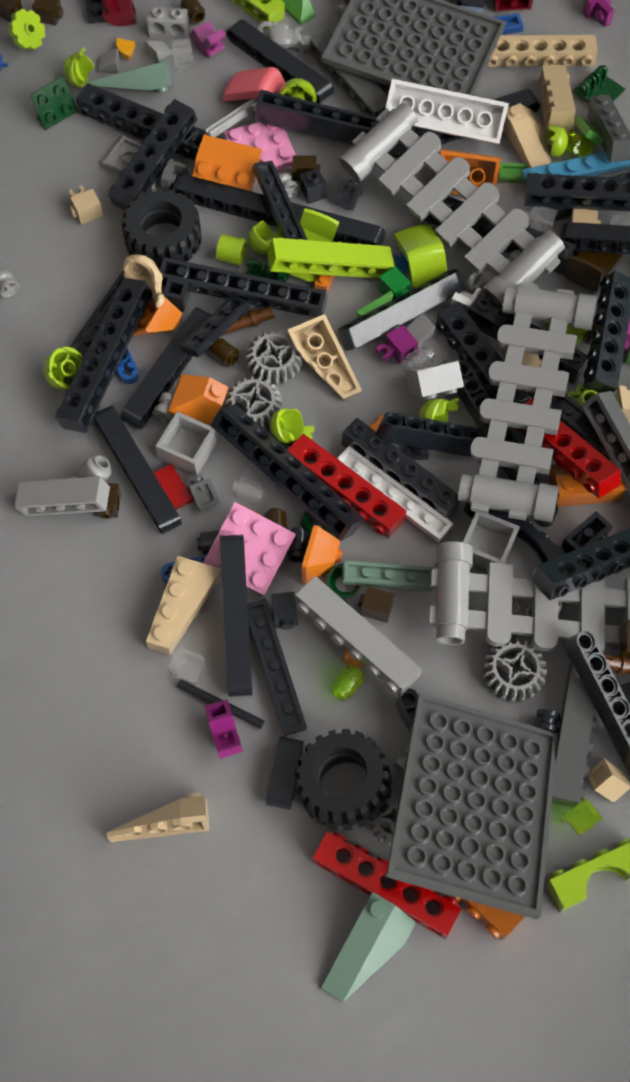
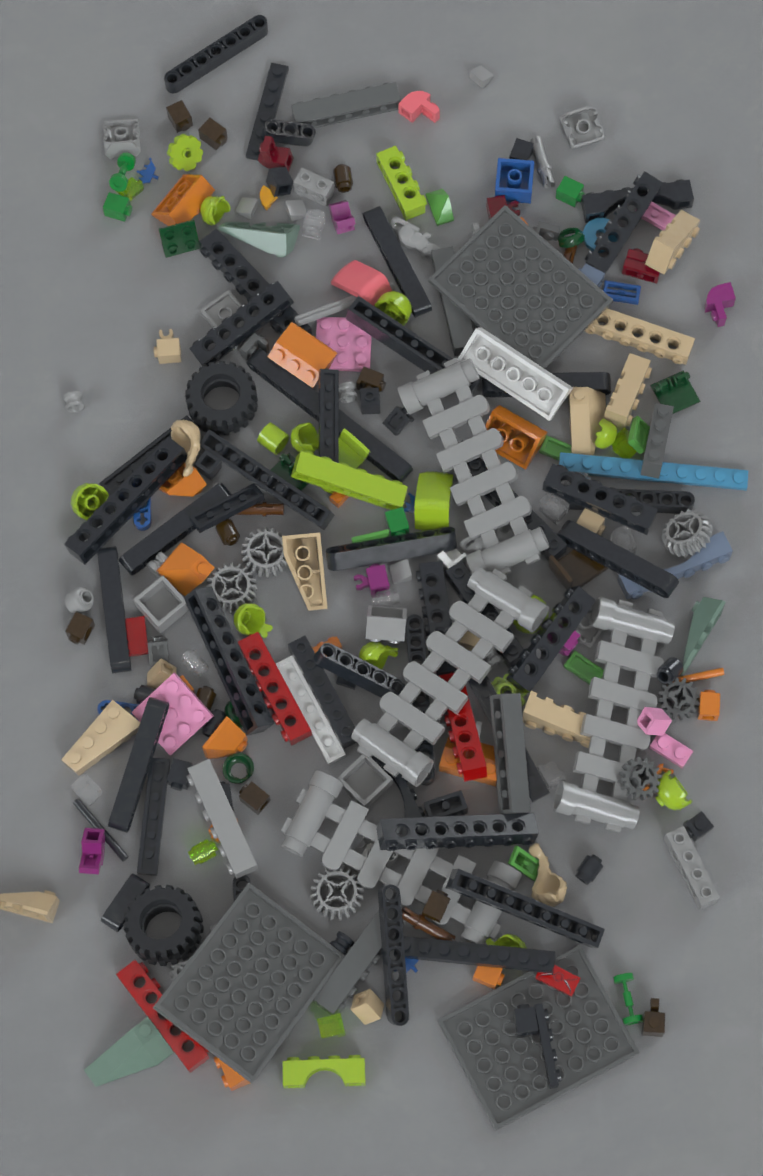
camera: 25 degrees right, 5 degrees up
(42, 69) = (183, 200): none -> orange slope
(62, 496) = (44, 613): light grey brick -> none
(132, 27) = (279, 181): none -> black brick
(215, 514) = (159, 673): none -> tan panel
(386, 575) = (270, 775): sand green tile -> none

